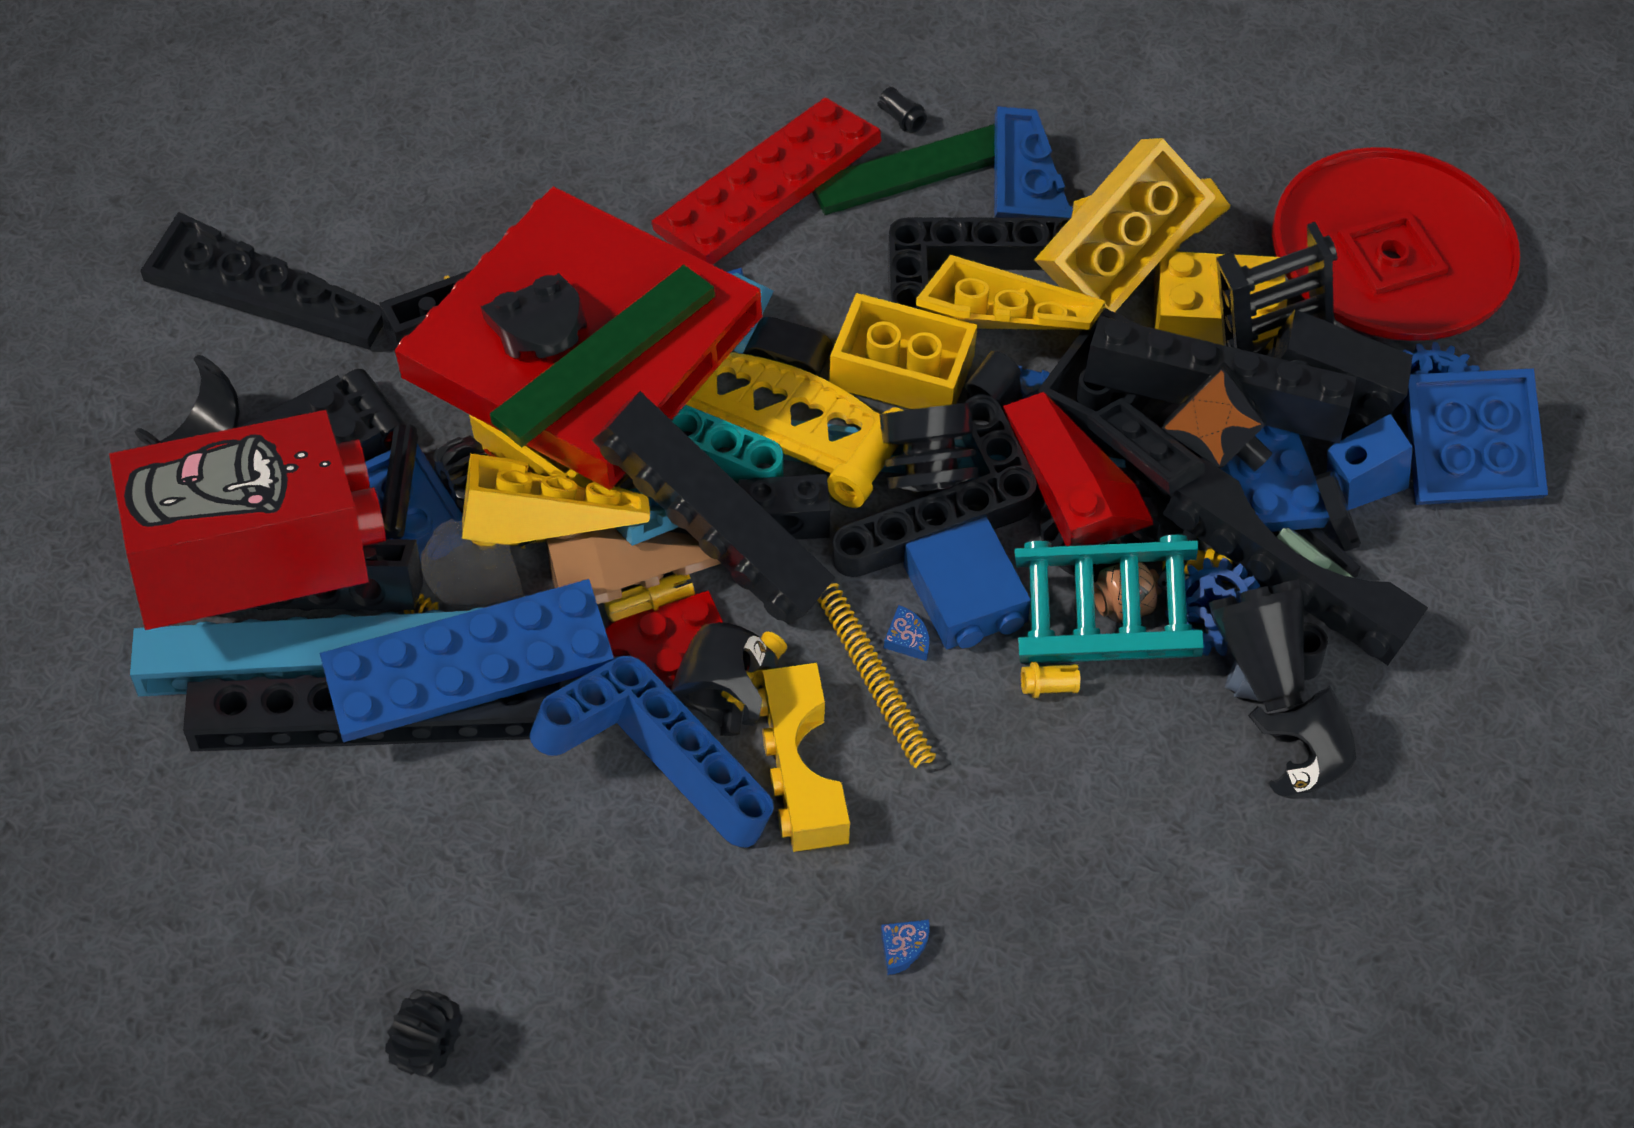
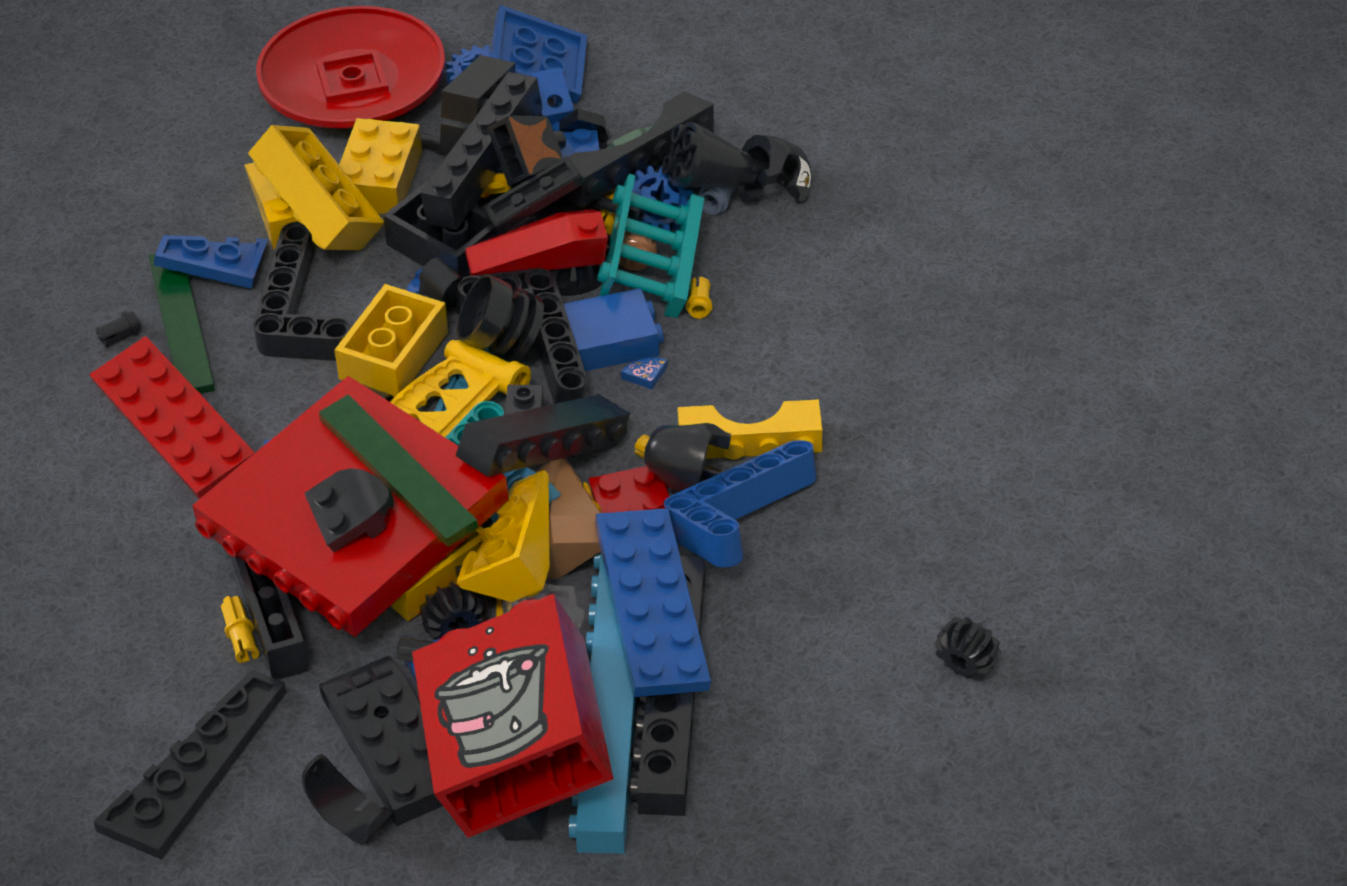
camera: 80 degrees left, 10 degrees down
(886, 681) = (687, 384): yellow piece -> none
(903, 944) = (907, 395): blue tile -> none
(1005, 299) = (361, 269): yellow wedge -> none
(1239, 305) = (424, 105): black fence -> none

